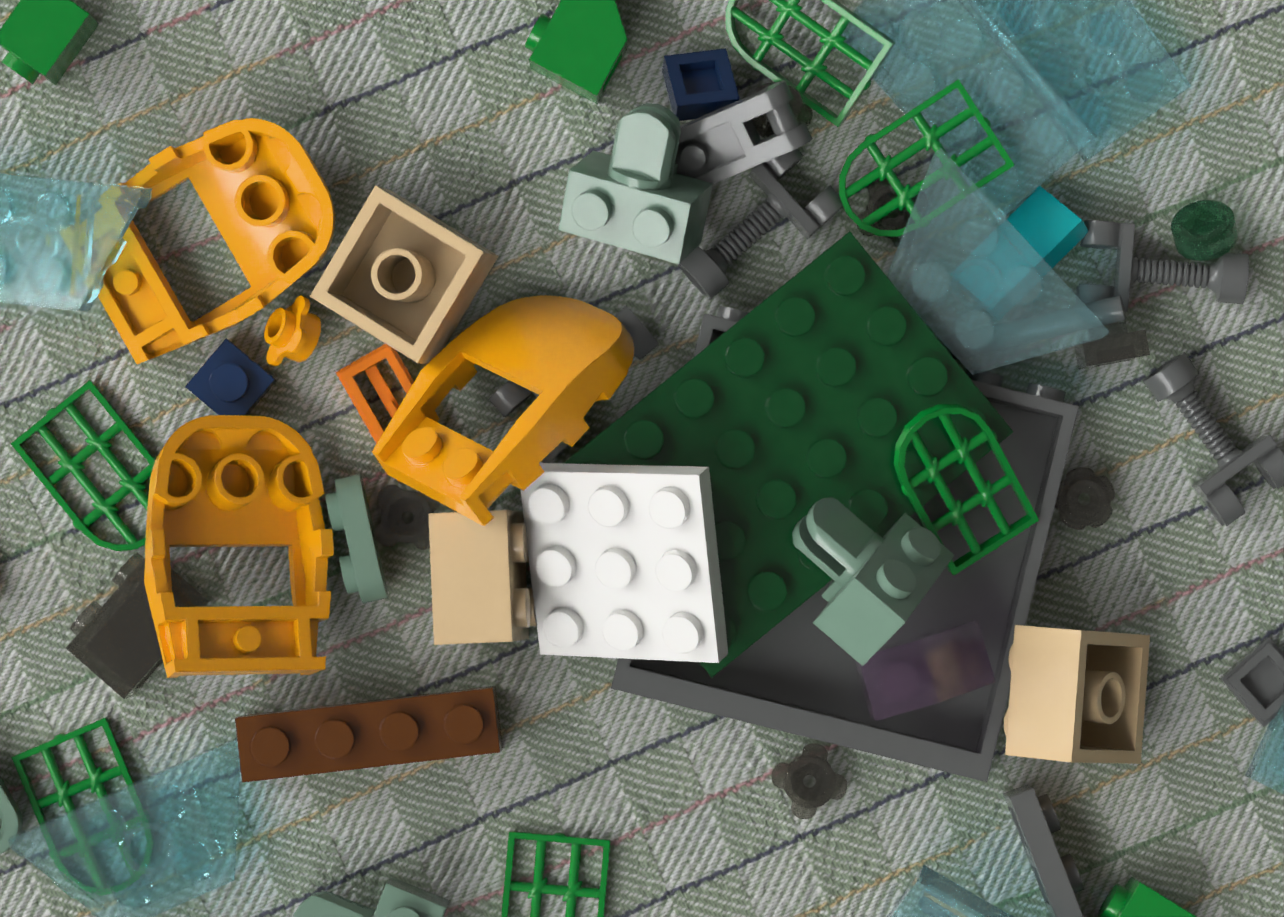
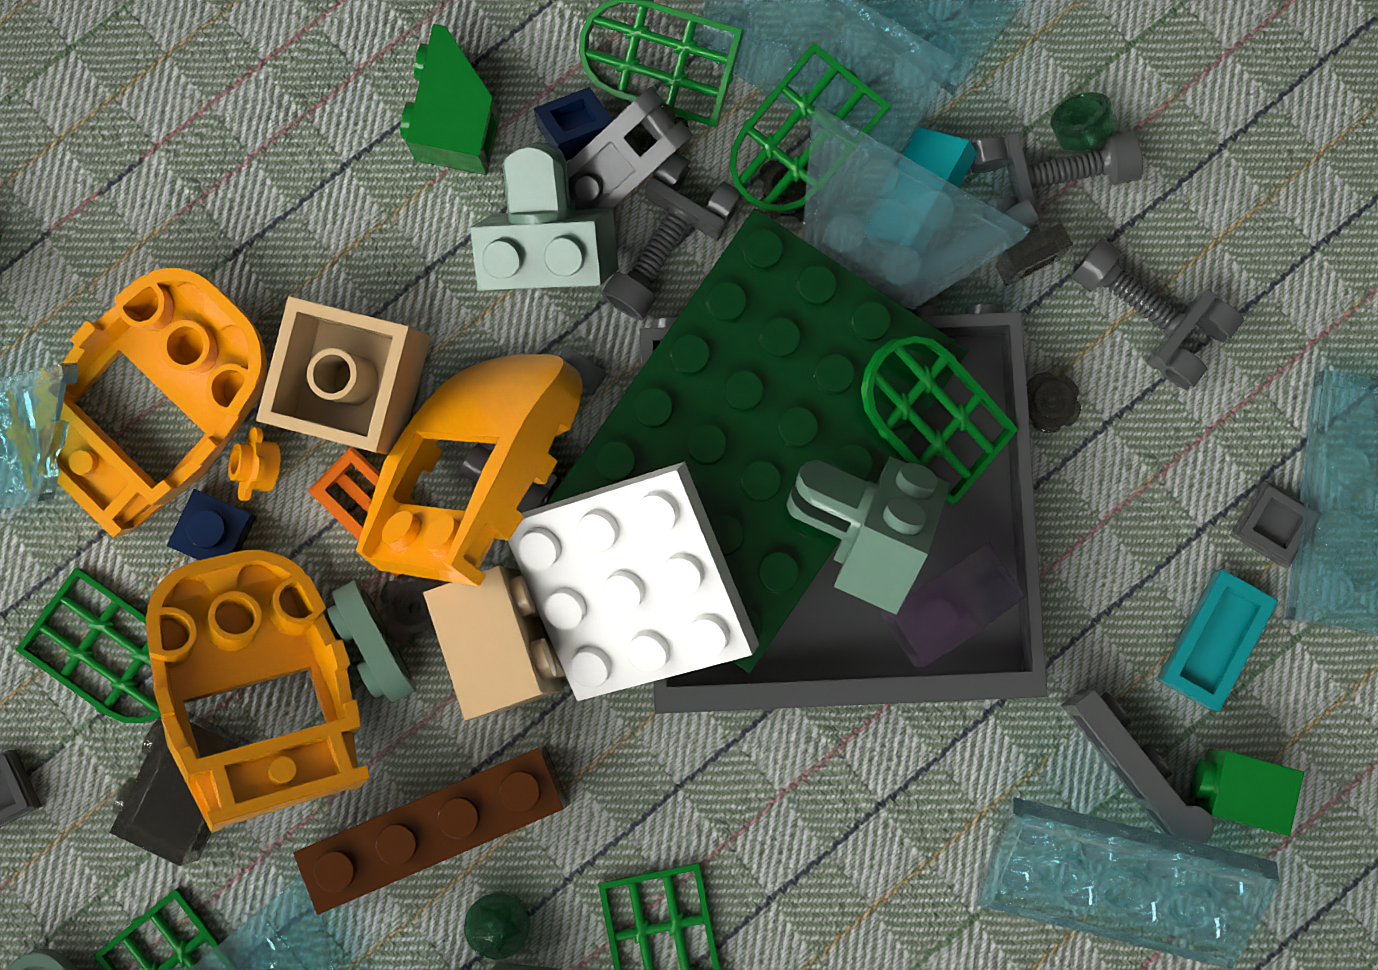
camera: 10 degrees left, 5 degrees down
(403, 841) = (497, 925): none -> clear green tile
(807, 799) = (891, 748): clear smoke plate -> none
(1076, 695) = (1107, 585): tan brick -> none
(1171, 776) = (1217, 640): none -> teal tile

